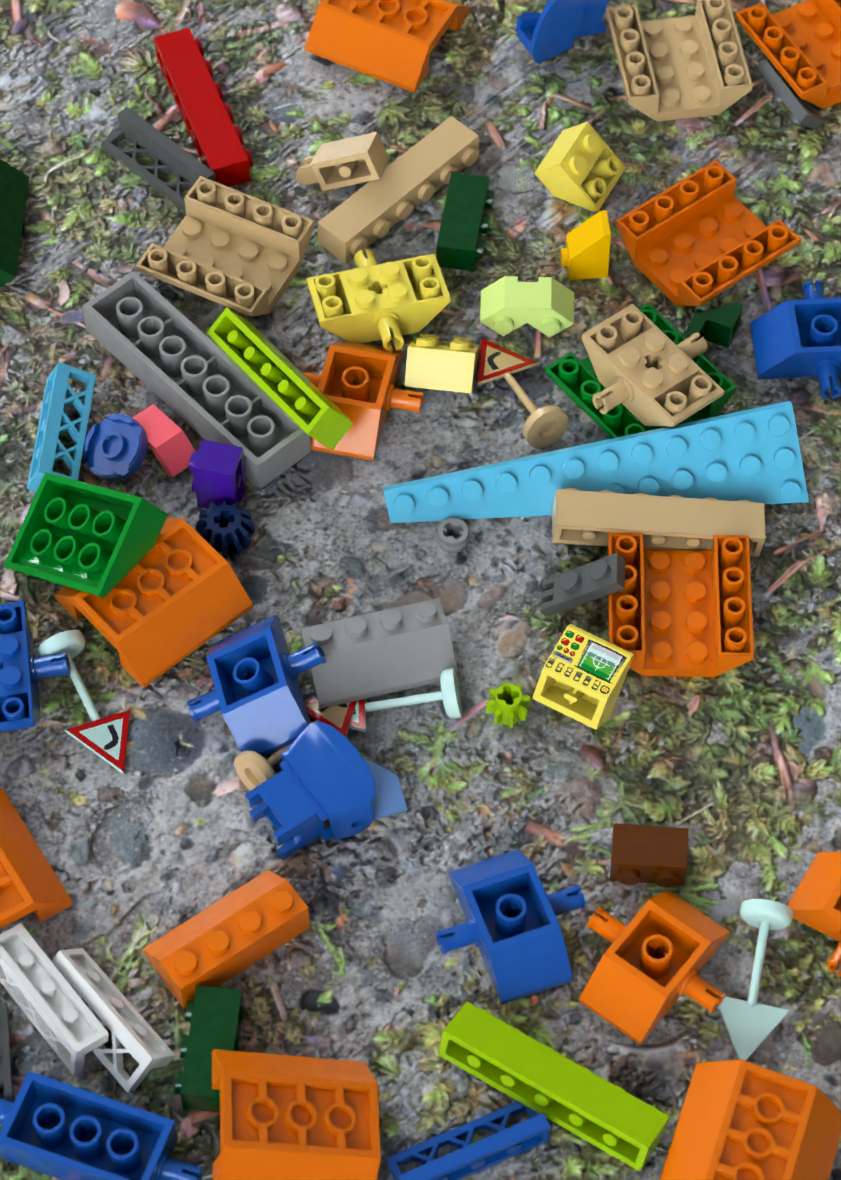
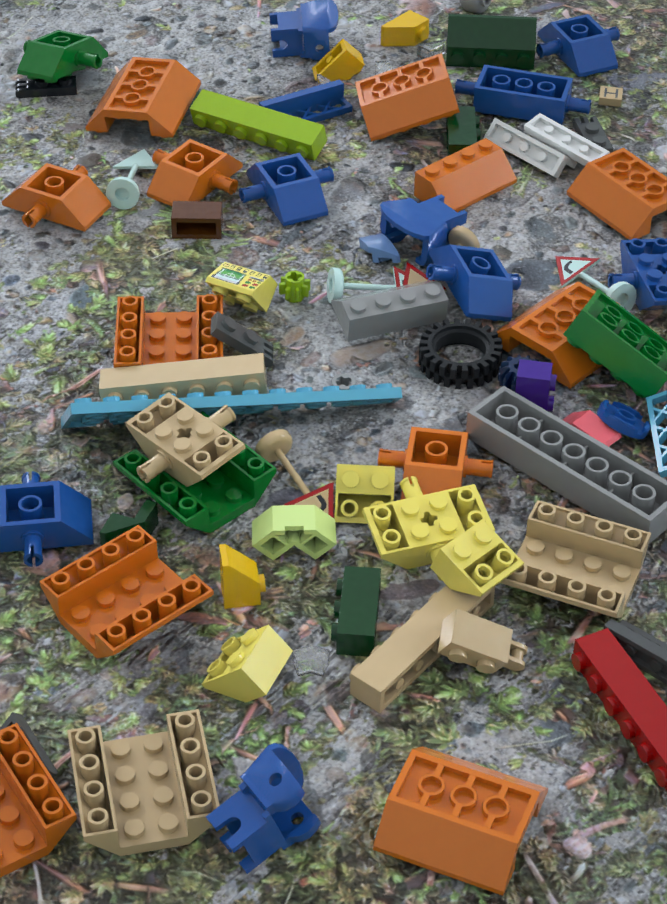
camera: 175 degrees right, 15 degrees down
(280, 379) = (500, 434): lime brick -> none
(299, 539) = (454, 372): none -> black tyre
(337, 218) = (475, 561): none -> light yellow slope

